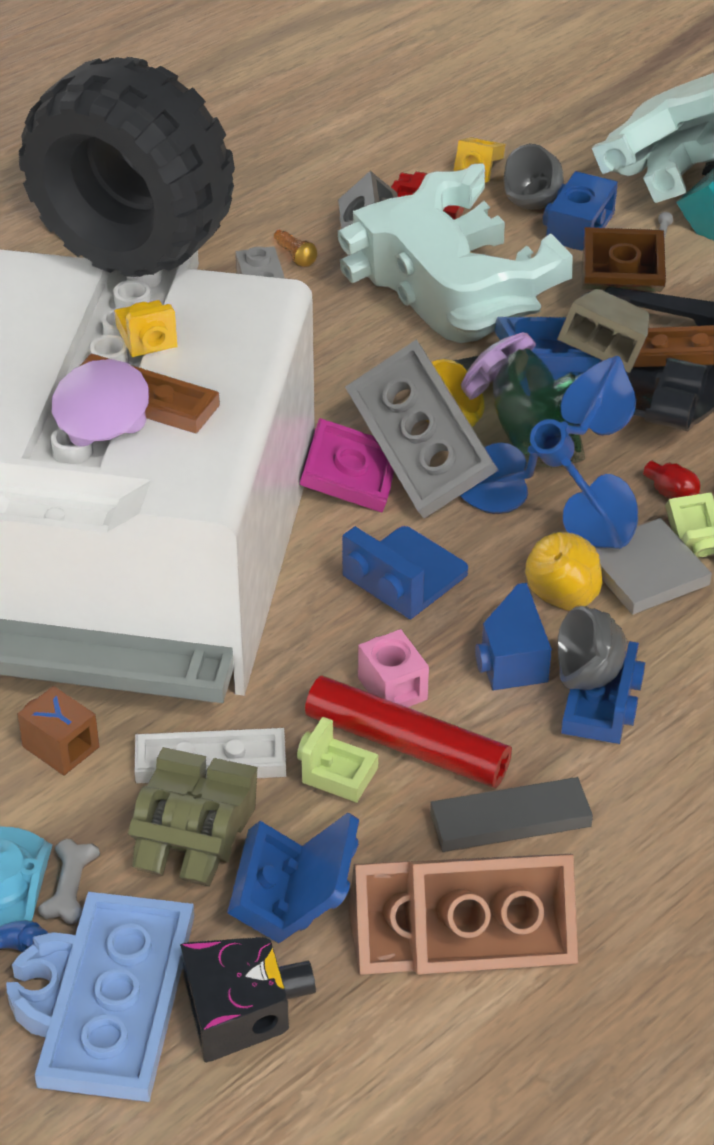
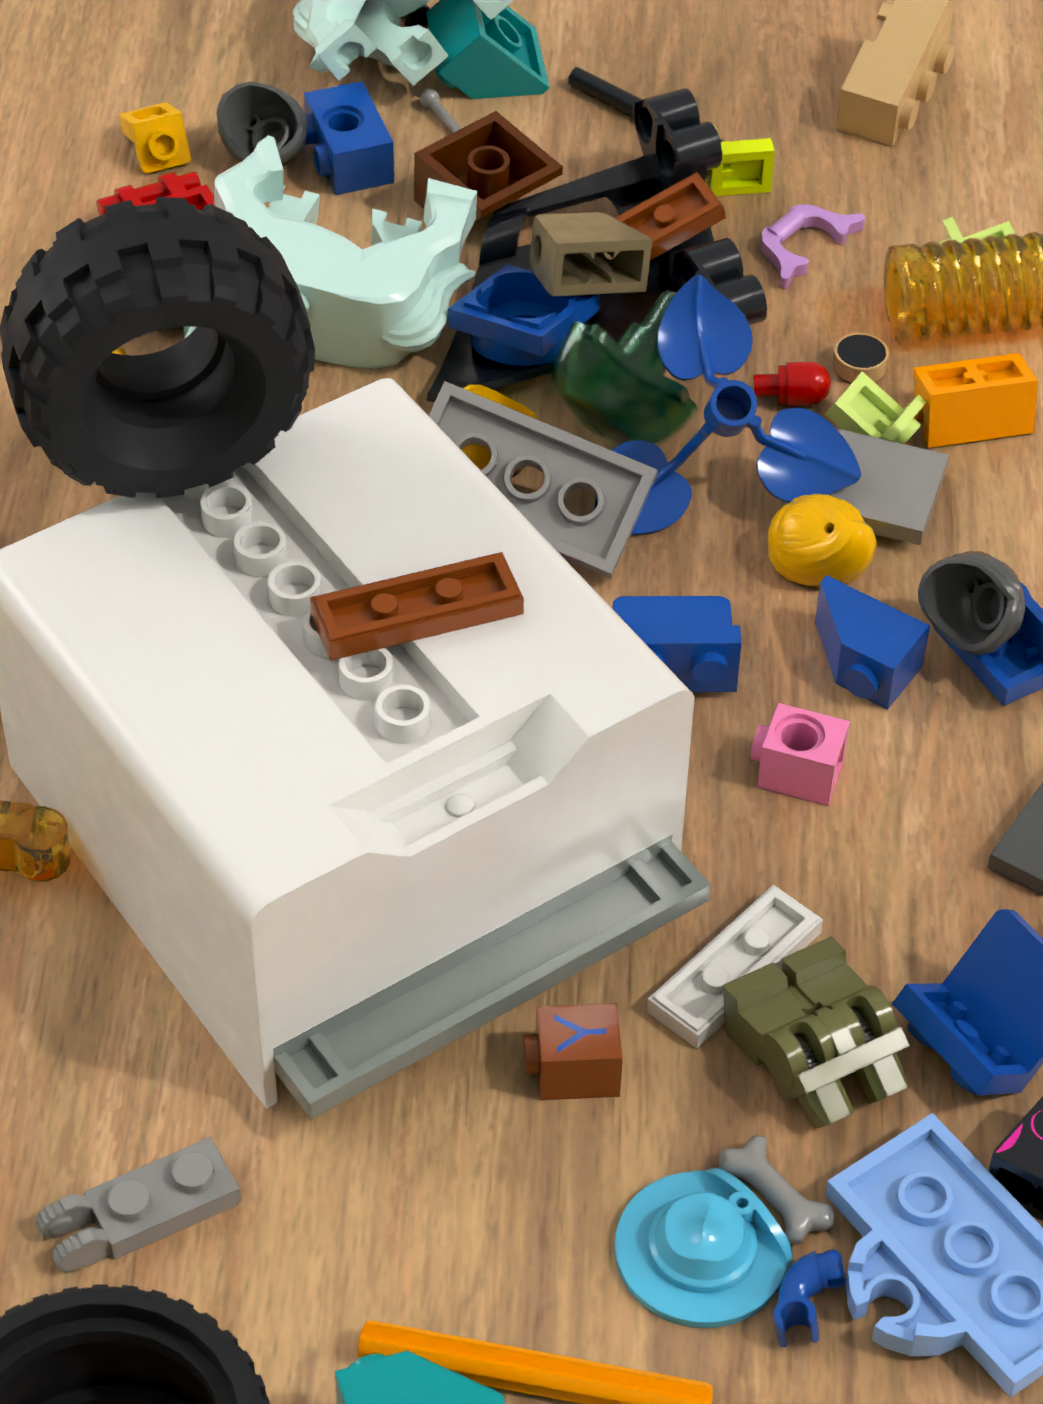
camera: 45 degrees left, 5 degrees up
(100, 401) = (409, 642): lavender dish -> none
(147, 327) = (321, 531): yellow bracket -> none
(335, 764) = (871, 882): yellowish green bracket -> none
(409, 731) = (886, 802): red piece -> none
(490, 362) = (537, 357): lavender dish -> none

